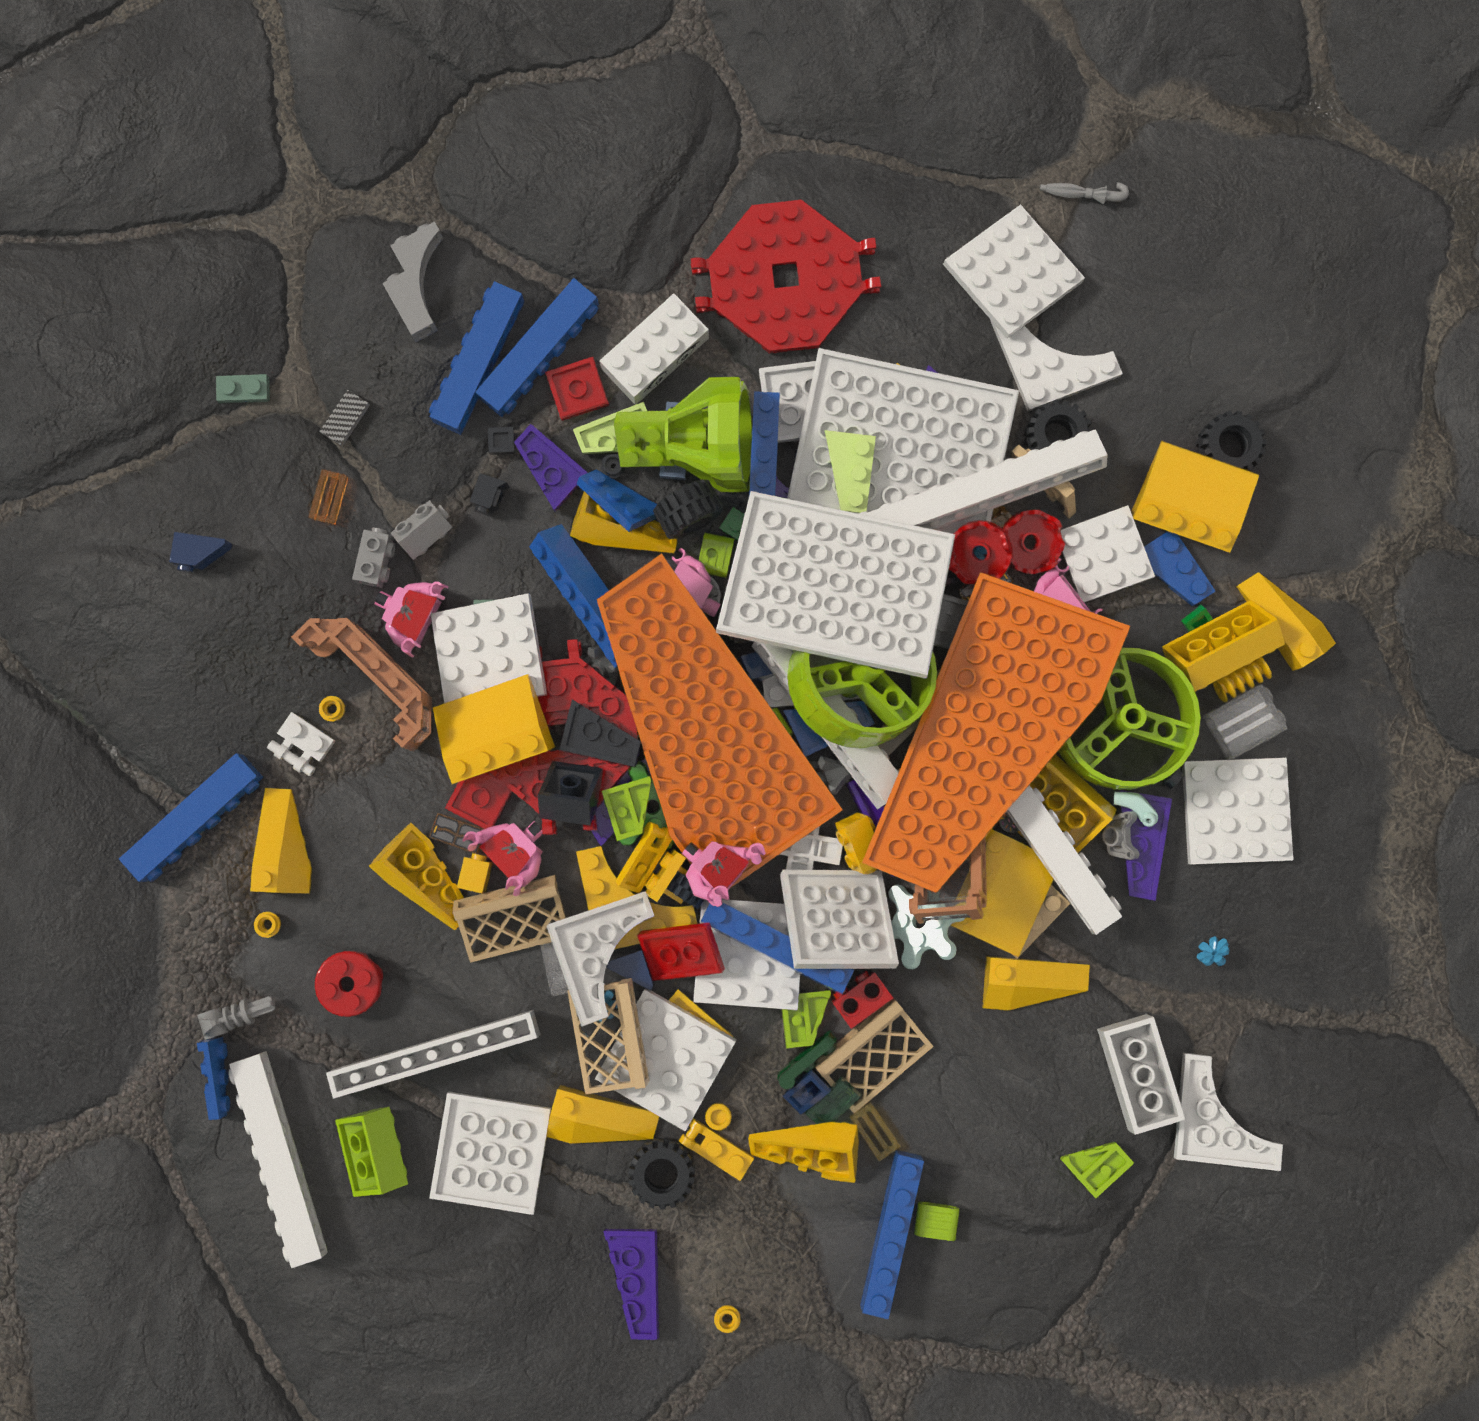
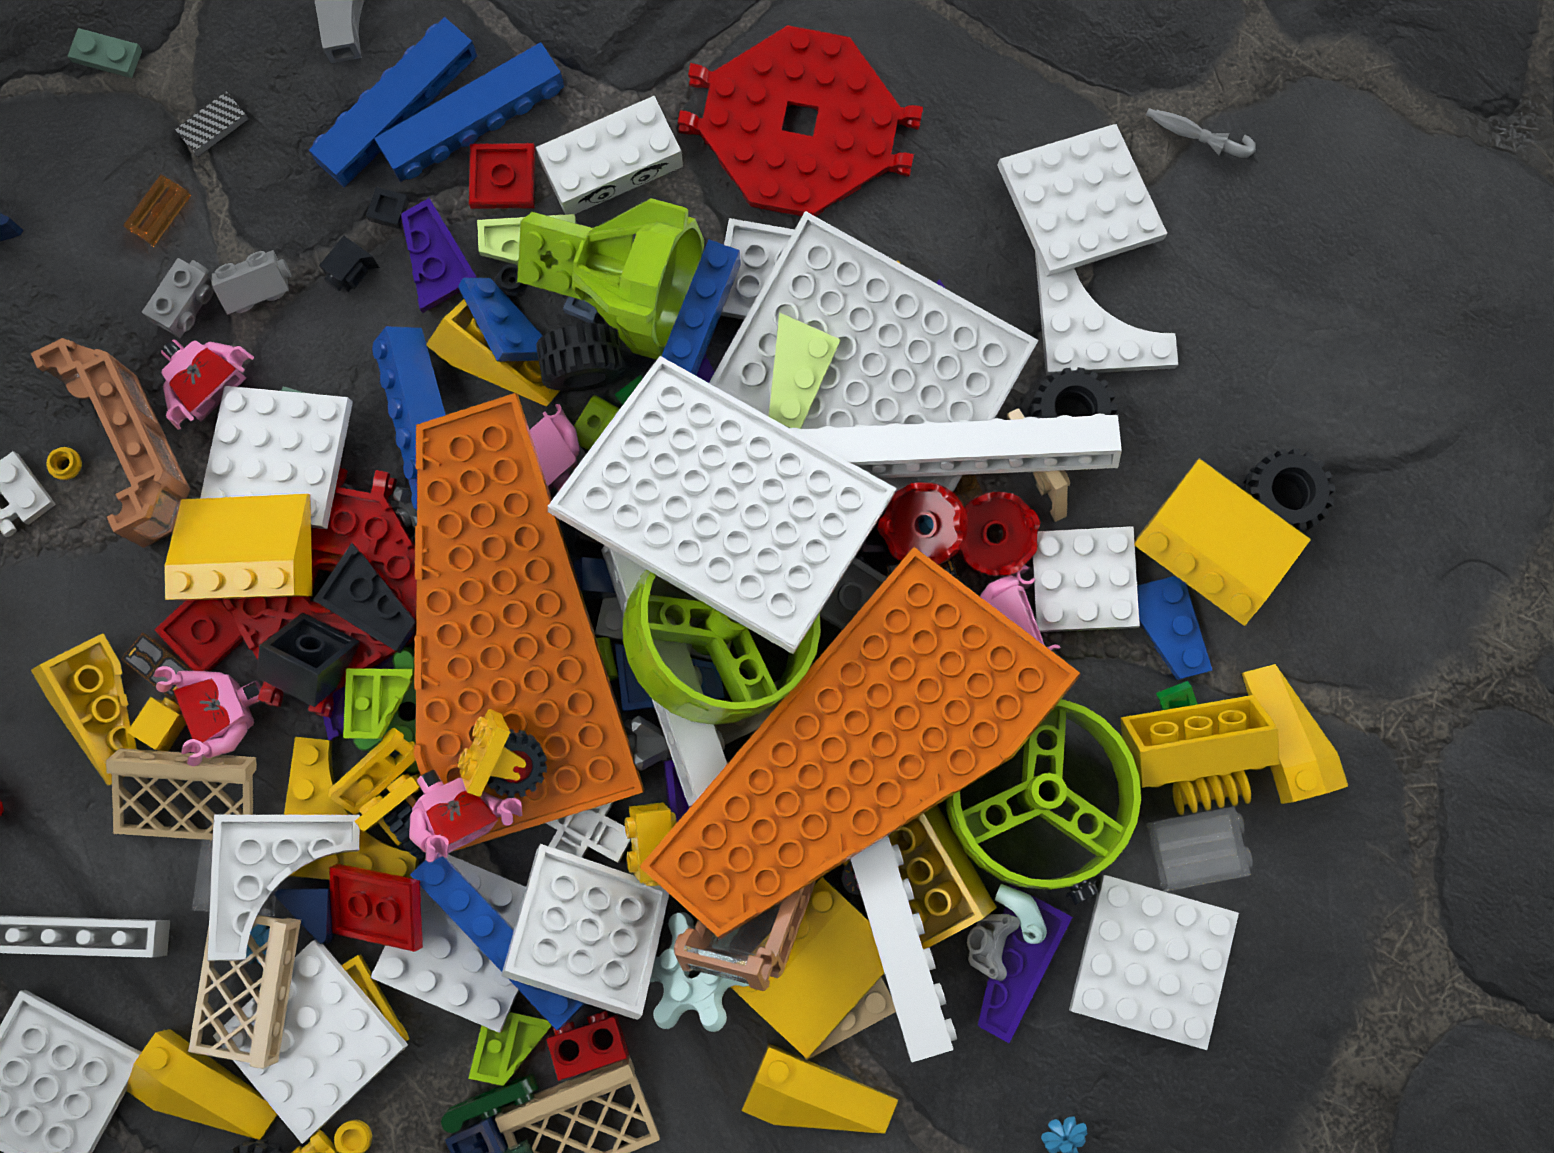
camera: 20 degrees right, 5 degrees down
(736, 818) = (501, 759): none -> yellow plate

